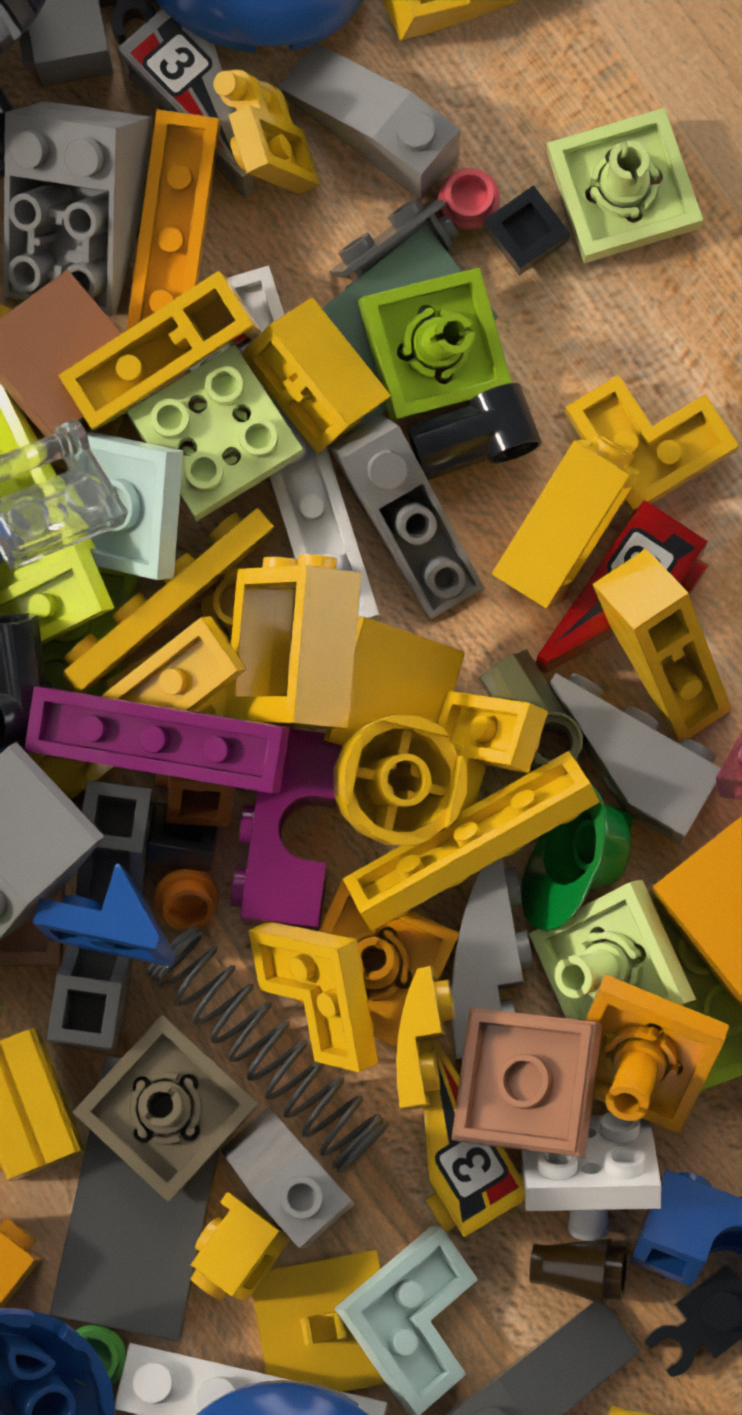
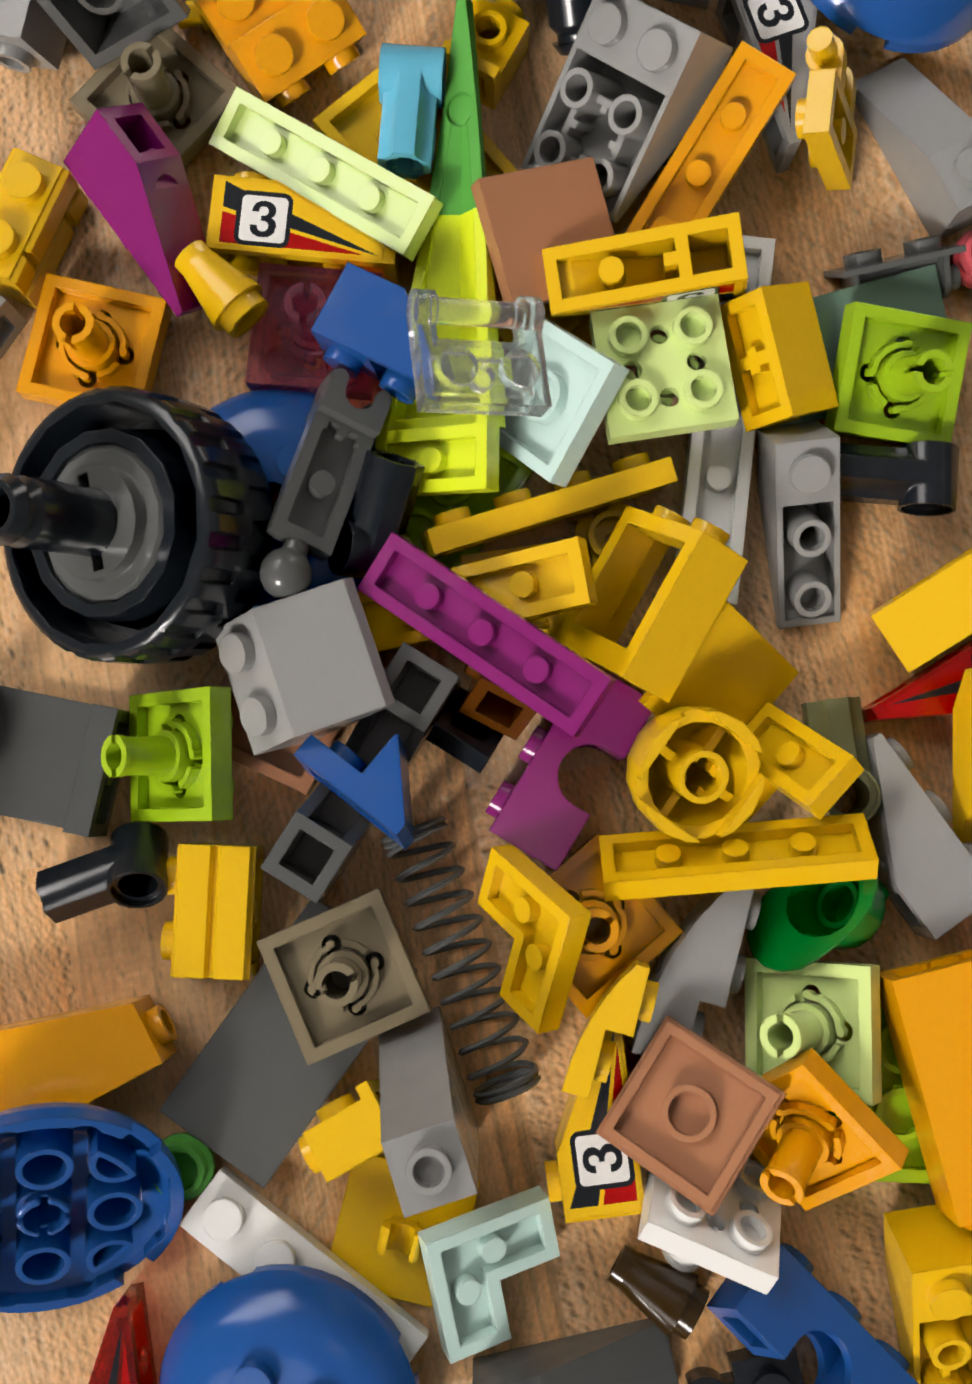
camera: 20 degrees right, 5 degrees up
(186, 898) = (447, 787): orange plate -> none

